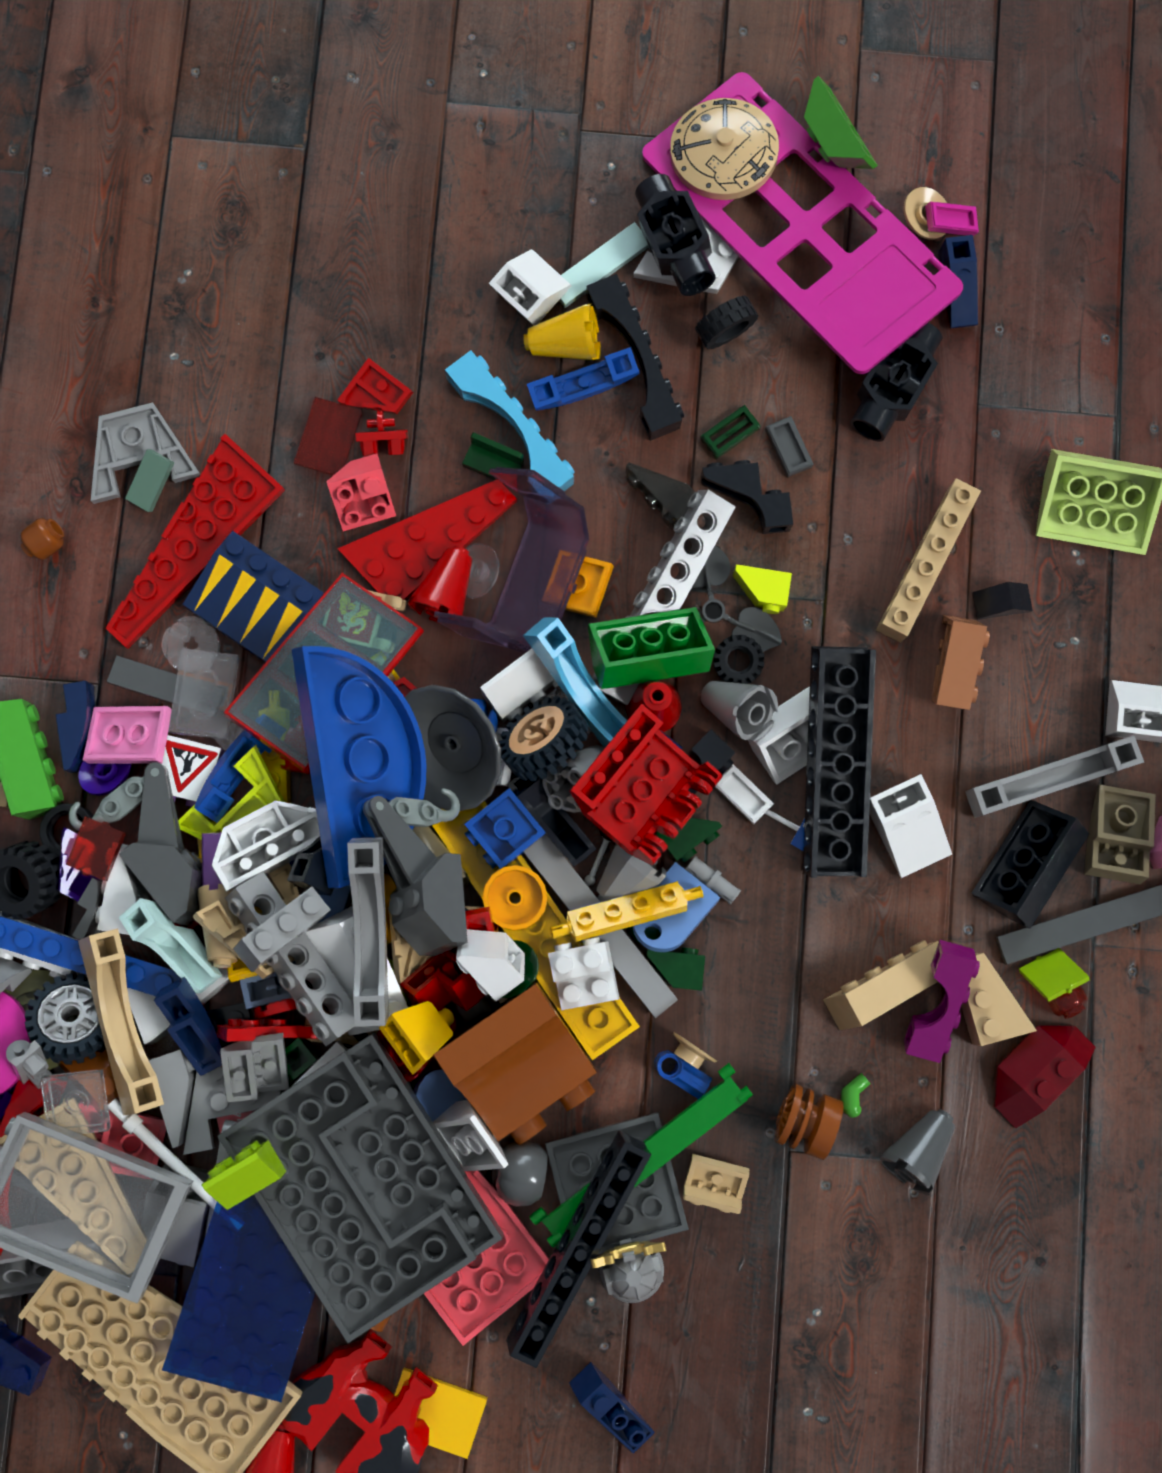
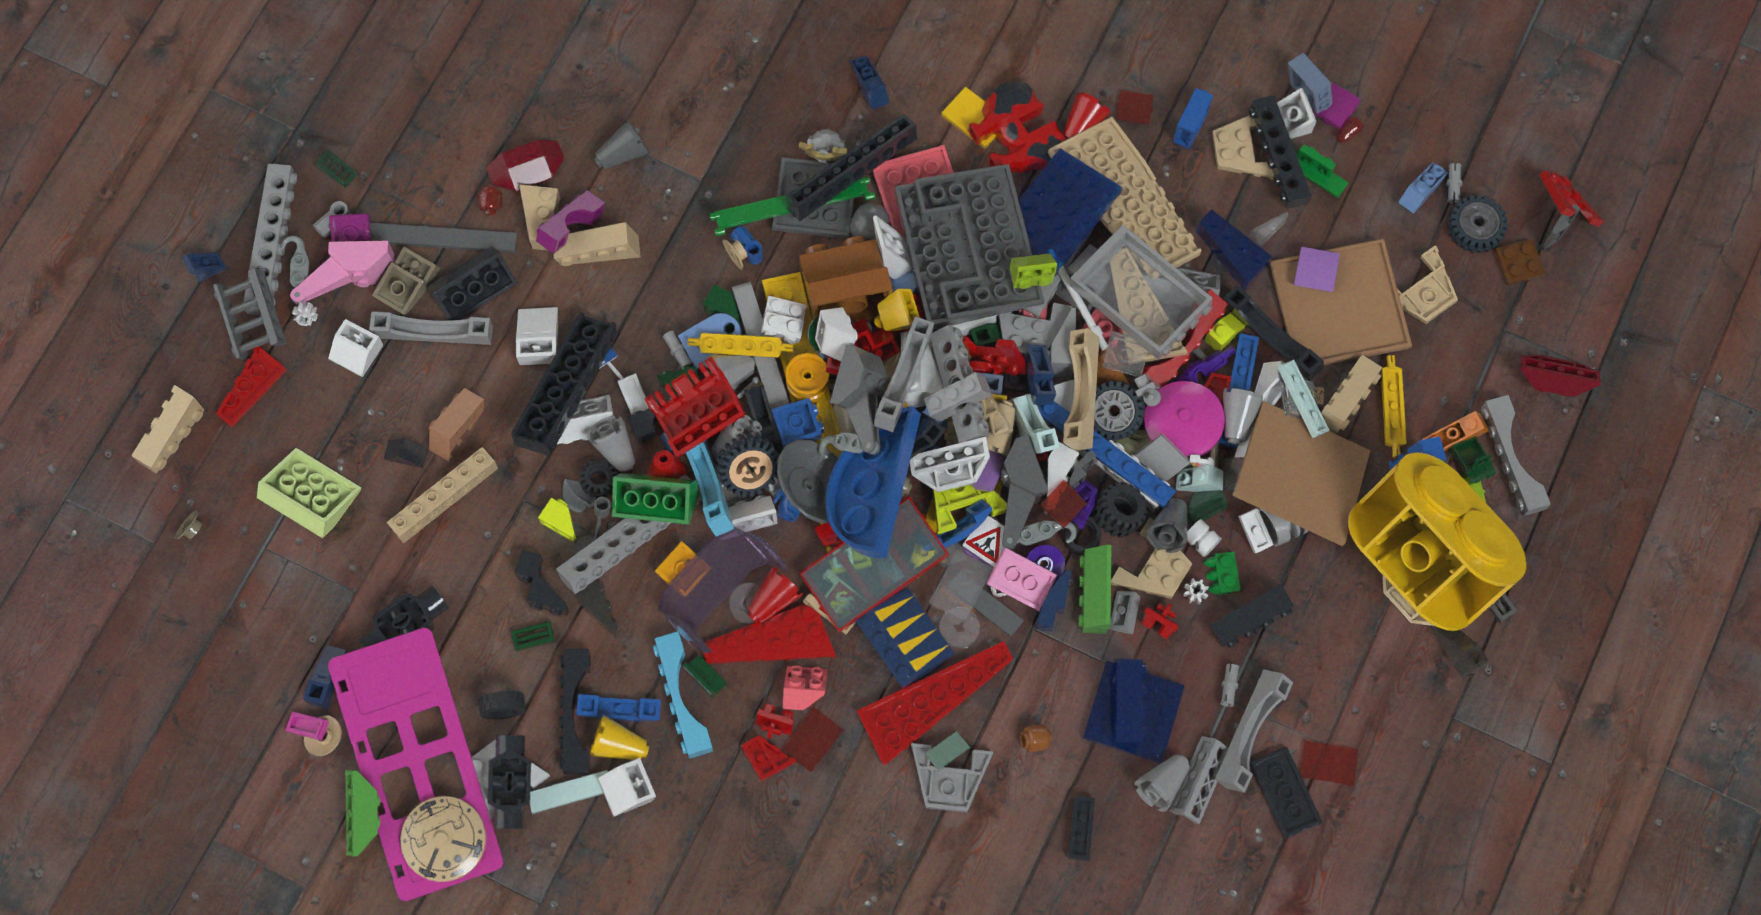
camera: 155 degrees left, 10 degrees down
(254, 1067) = (1002, 329): light grey slope -> none
(715, 1184) = (755, 175): tan bracket -> none
(789, 446) = (497, 610): dark grey tile -> none
(815, 1123) = (682, 186): dark orange wheel -> none
(850, 1095) = (649, 195): bright green arm -> none
(1054, 974) = (491, 213): lime piece -> none

